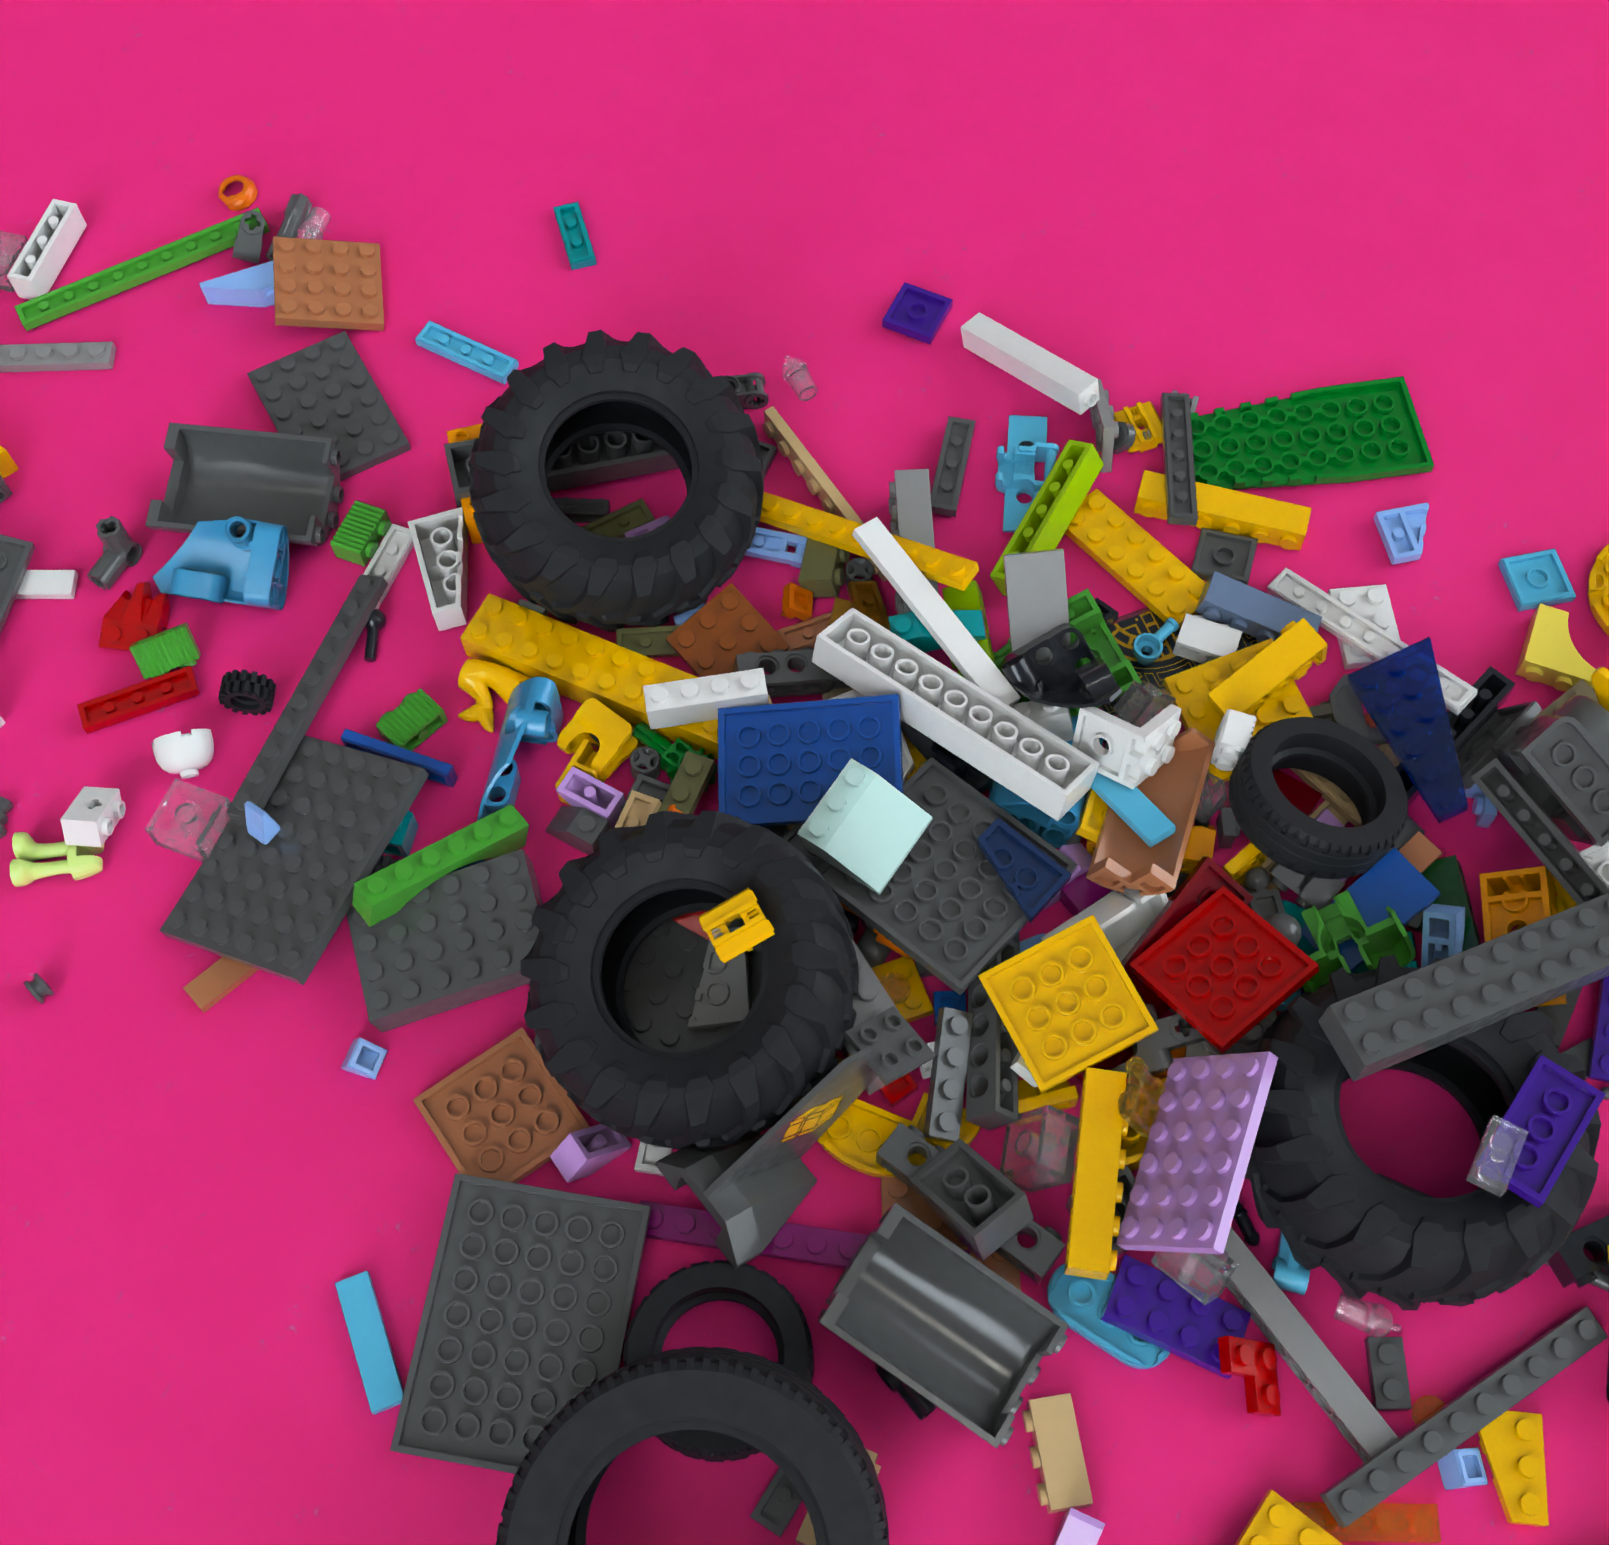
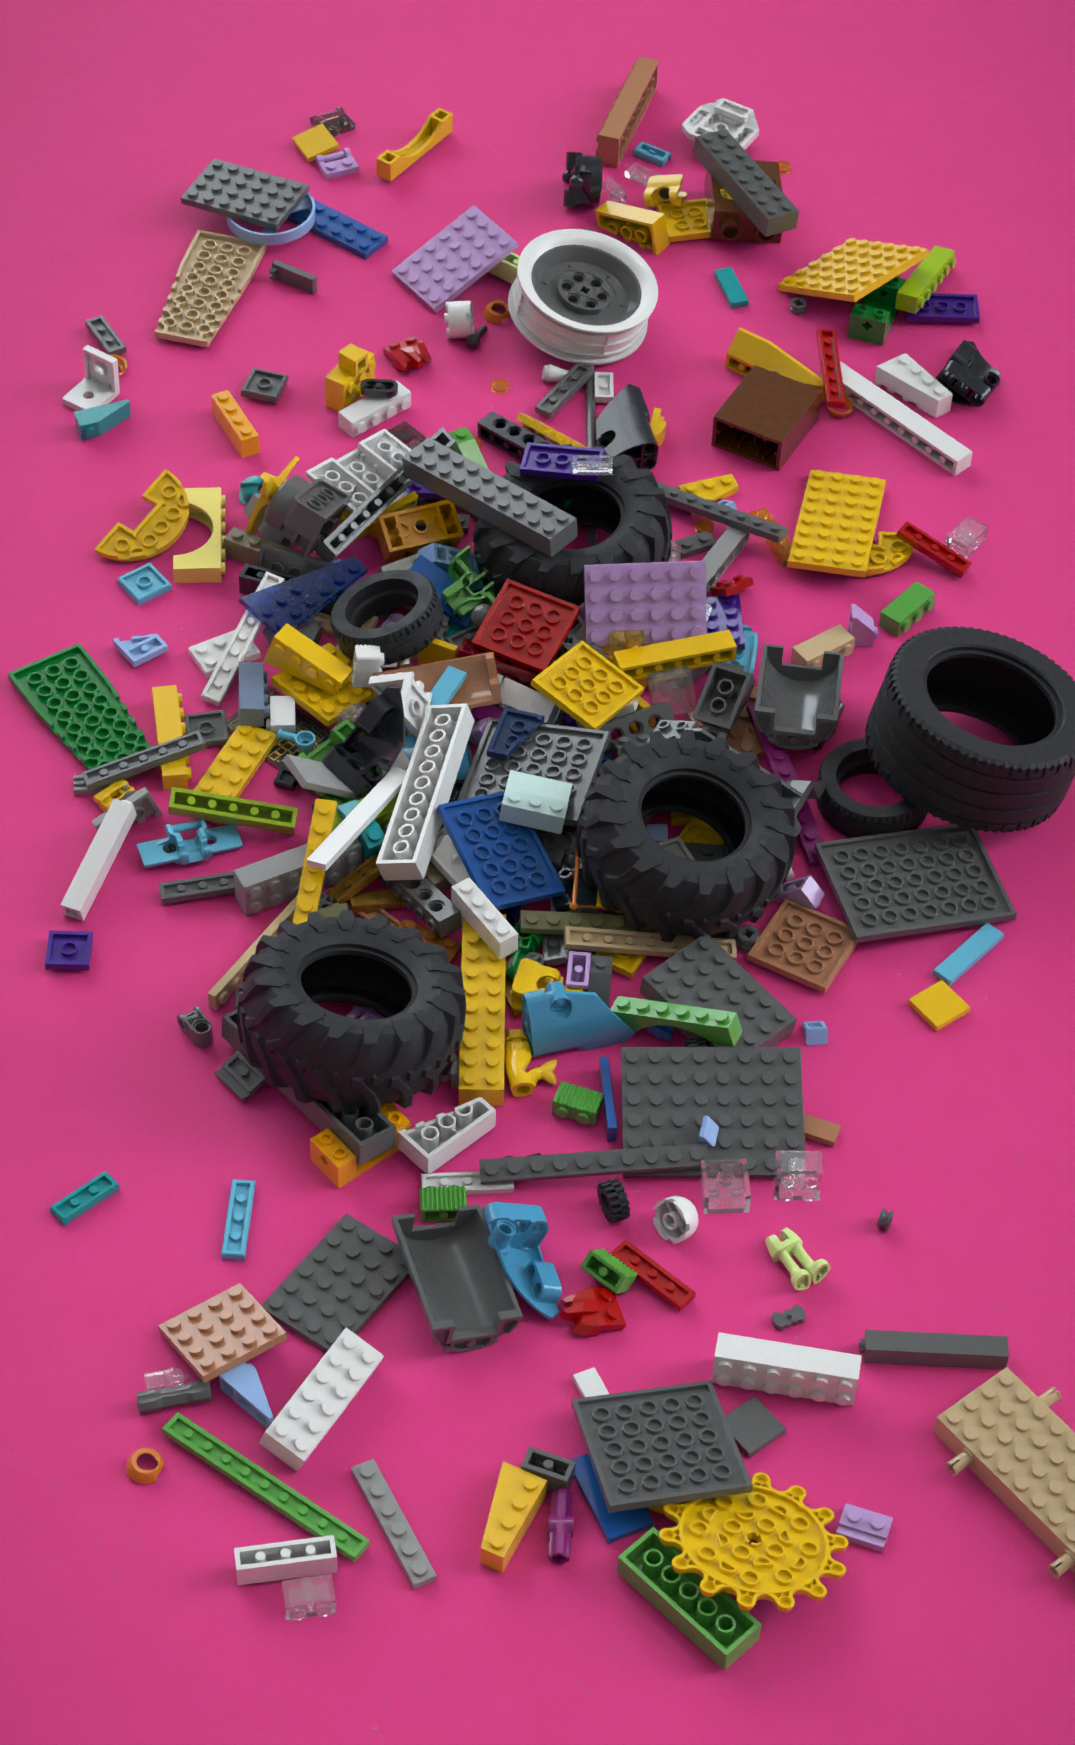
camera: 120 degrees left, 15 degrees down
(92, 816) = (757, 1241): white brick -> none
(118, 553) = (544, 1351): dark grey piece -> none
(145, 904) = (797, 1175): none -> clear brick
(193, 335) = (321, 1399): none -> white brick
(249, 242) = (201, 1411): dark grey piece -> none
(309, 1247) = (939, 1005): none -> yellow tile
(731, 944) = (662, 778): yellow piece -> none
(797, 375) = (166, 998): clear piece -> none

